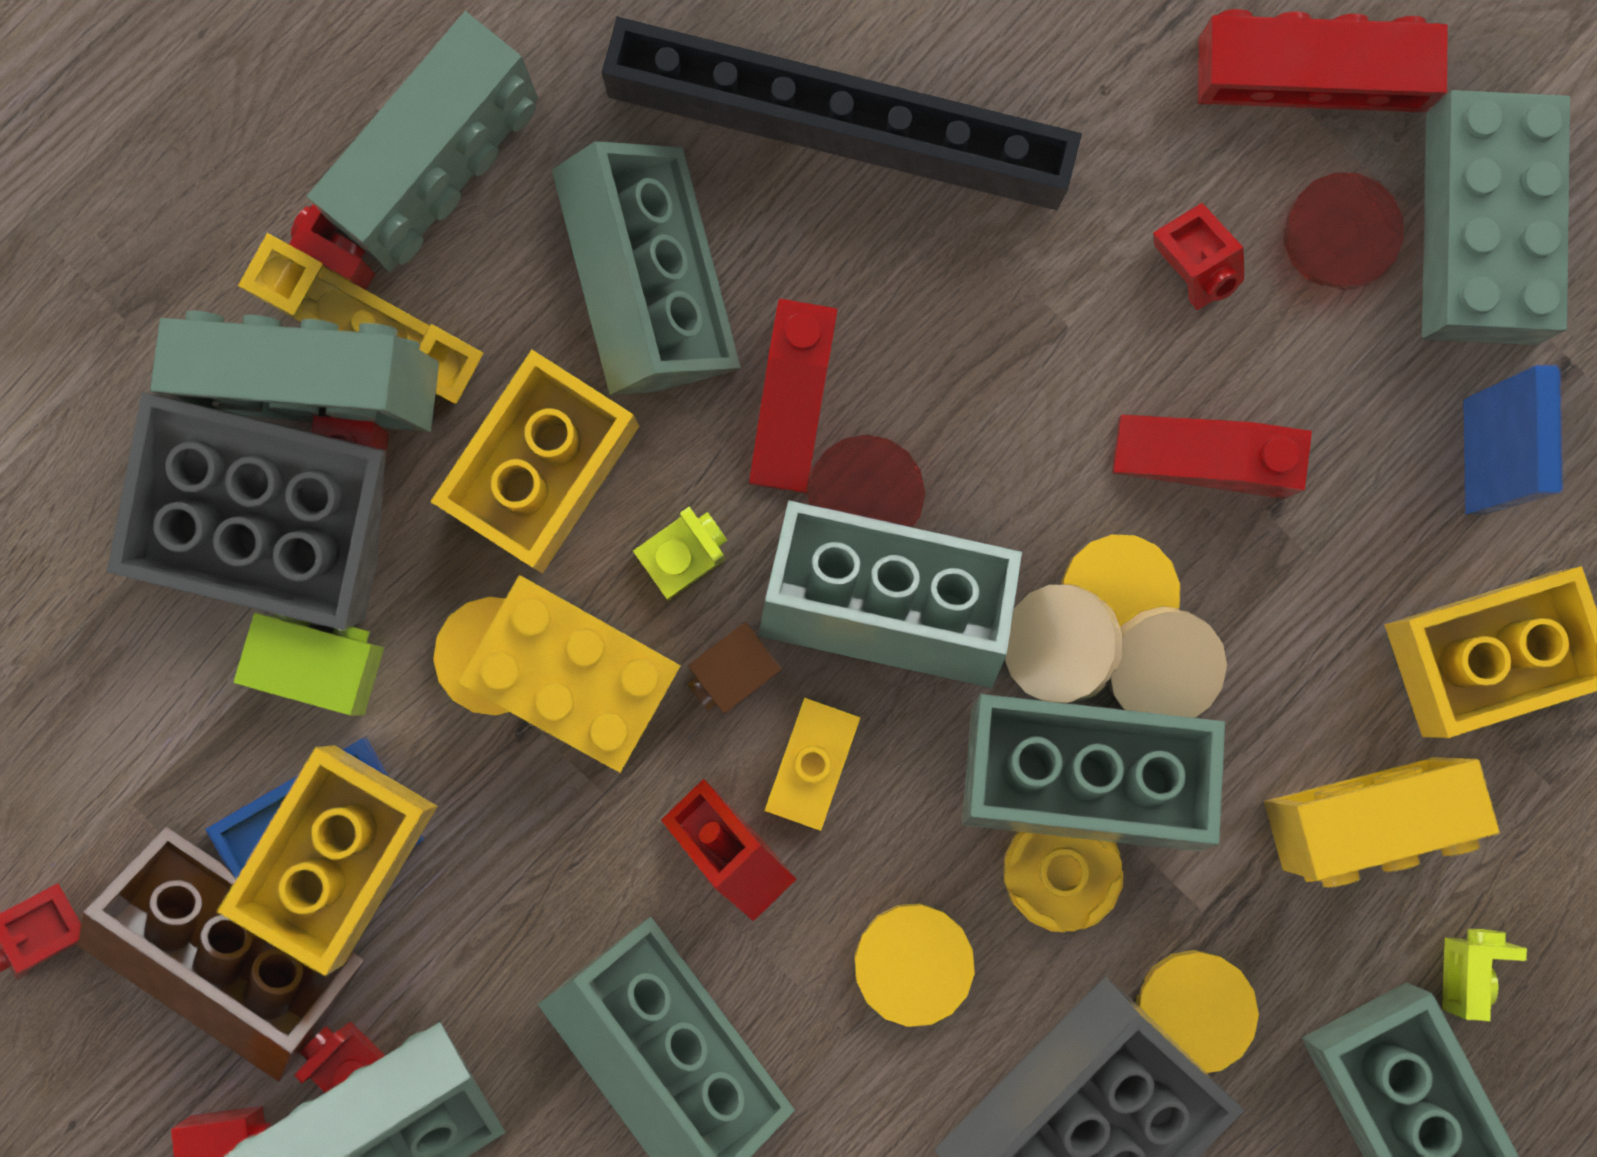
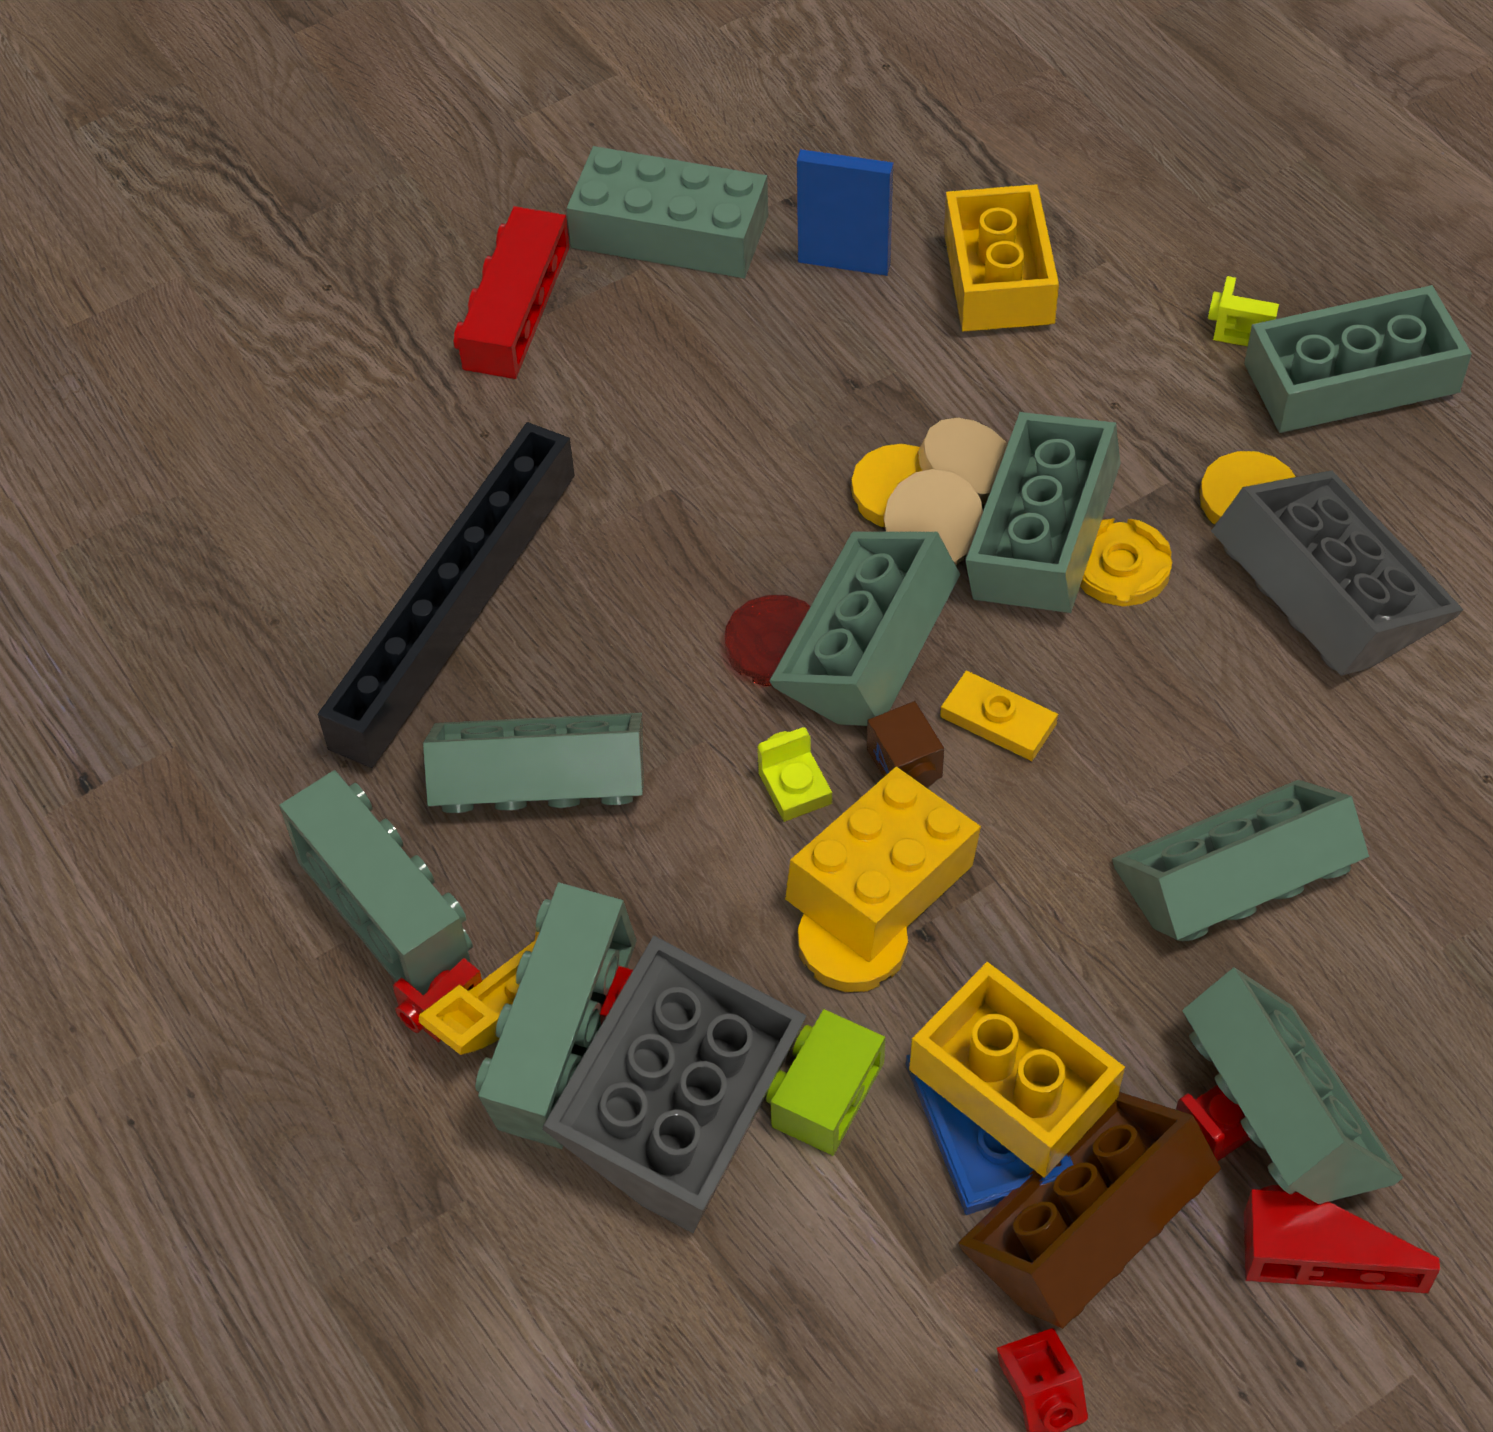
camera: 70 degrees left, 30 degrees down
(536, 461) = (689, 857): yellow brick -> none
(728, 850) = (1062, 779): red slope -> none
(792, 395) = (675, 668): red slope -> none
(914, 965) = (1183, 672): yellow tile -> none
(1202, 255) = (641, 384): red bracket -> none
(1214, 454) = (803, 403): red slope -> none
(1343, 231) = (648, 305): clear red tile -> none
(1382, 820) = (1114, 340): yellow brick -> none

